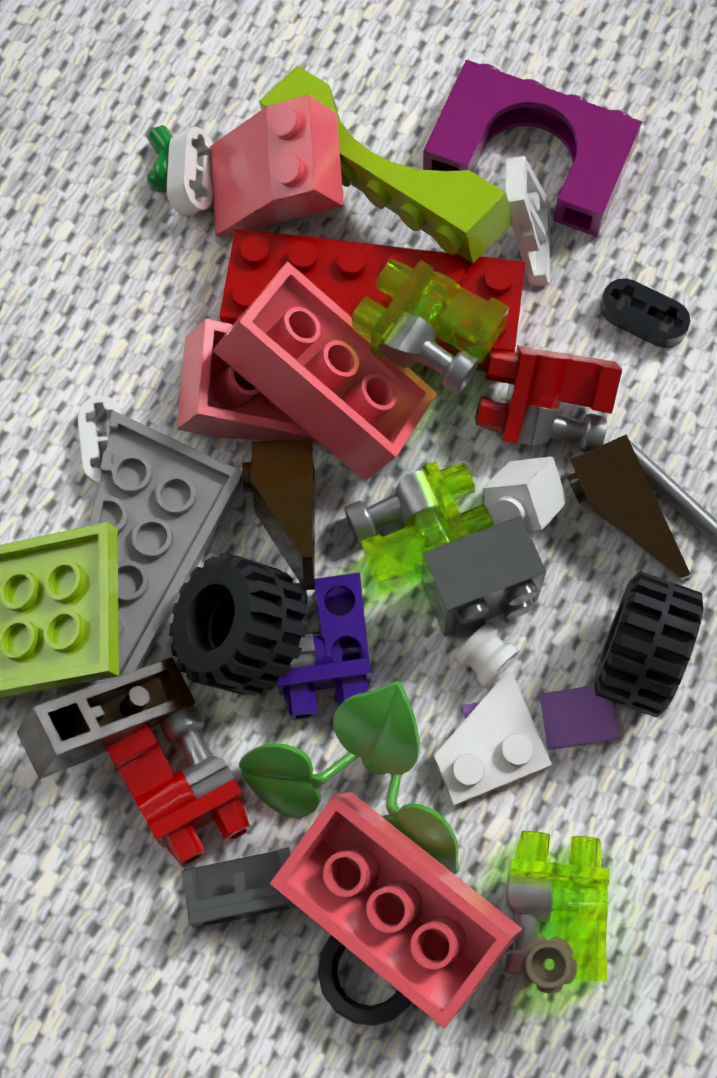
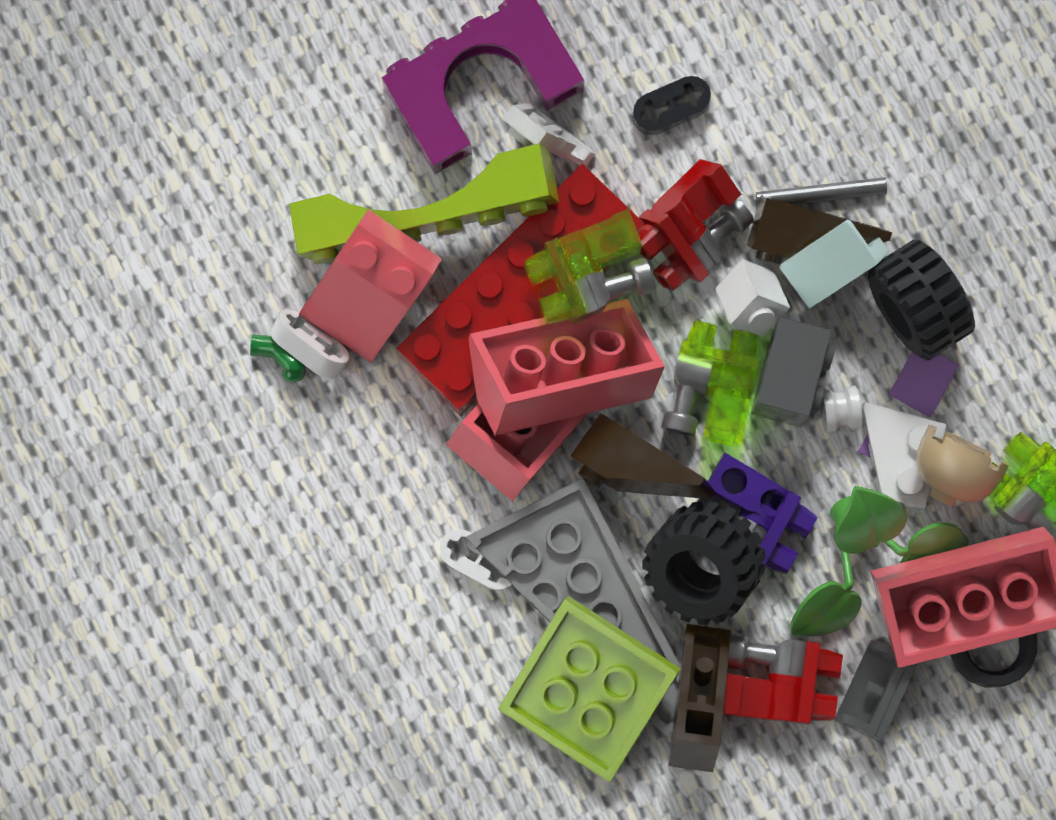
camera: 55 degrees left, 10 degrees up
(512, 796) = (957, 468): none -> tan cylinder
(615, 537) = (831, 262): none -> light aqua panel

